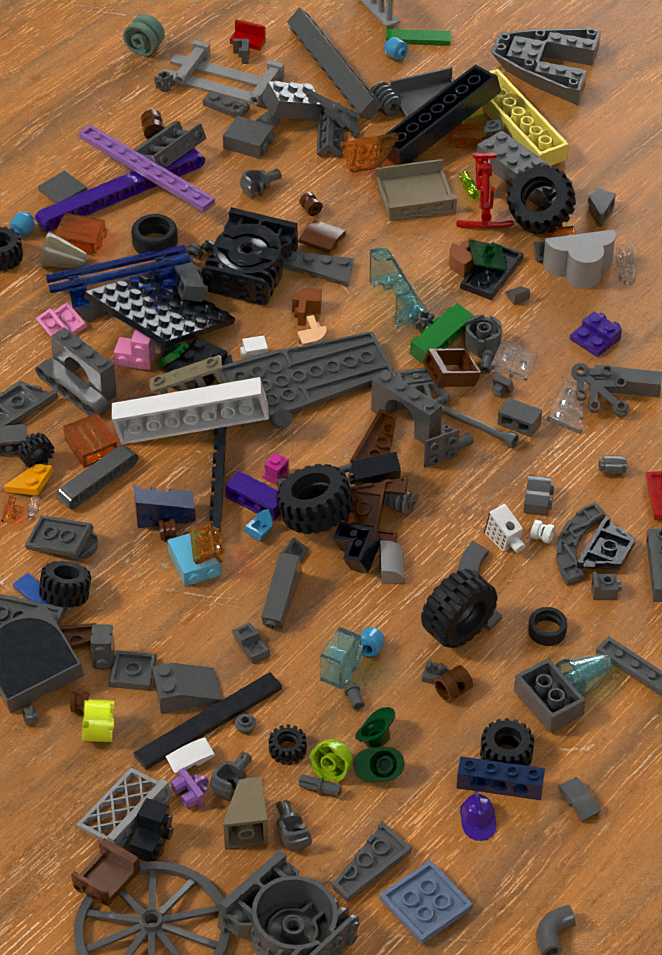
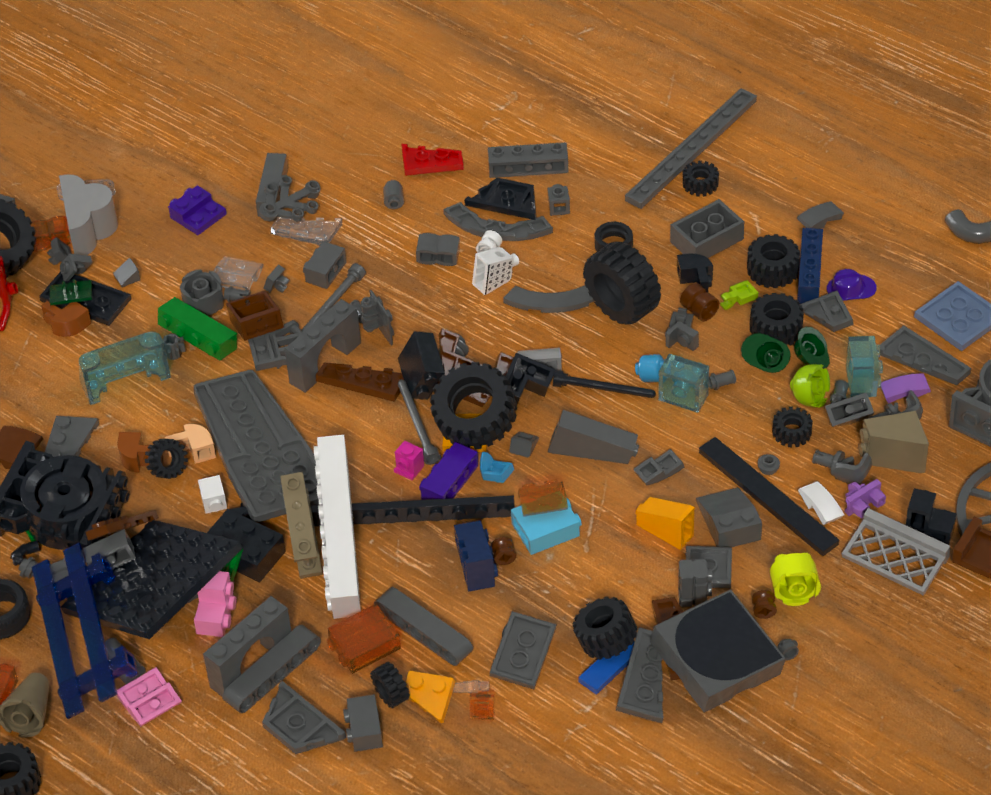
camera: 90 degrees left, 0 degrees up
(179, 637) = (667, 520): none -> light orange slope
(210, 284) = (117, 524): none -> reddish brown wing
(295, 785) = (849, 410): none -> dark grey slope
(298, 317) = (155, 458): none -> black tyre
(330, 842) = (900, 386): none -> medium lavender slope
(349, 799) = (863, 365): none -> clear light blue brick
(365, 578) = (562, 379): none -> black piece
(411, 669) = (682, 334): none -> dark grey bracket
(427, 728) = (777, 317): none -> black tyre
(438, 791) = (829, 311): none -> dark grey wing
(467, 720) = (740, 293): none -> lime plate
(499, 688) = (695, 268): none -> black brick
(522, 257) = (74, 264): none -> dark grey bracket
(585, 670) = (673, 205): clear light blue cone -> none
(636, 711) = (700, 170): none -> black tyre

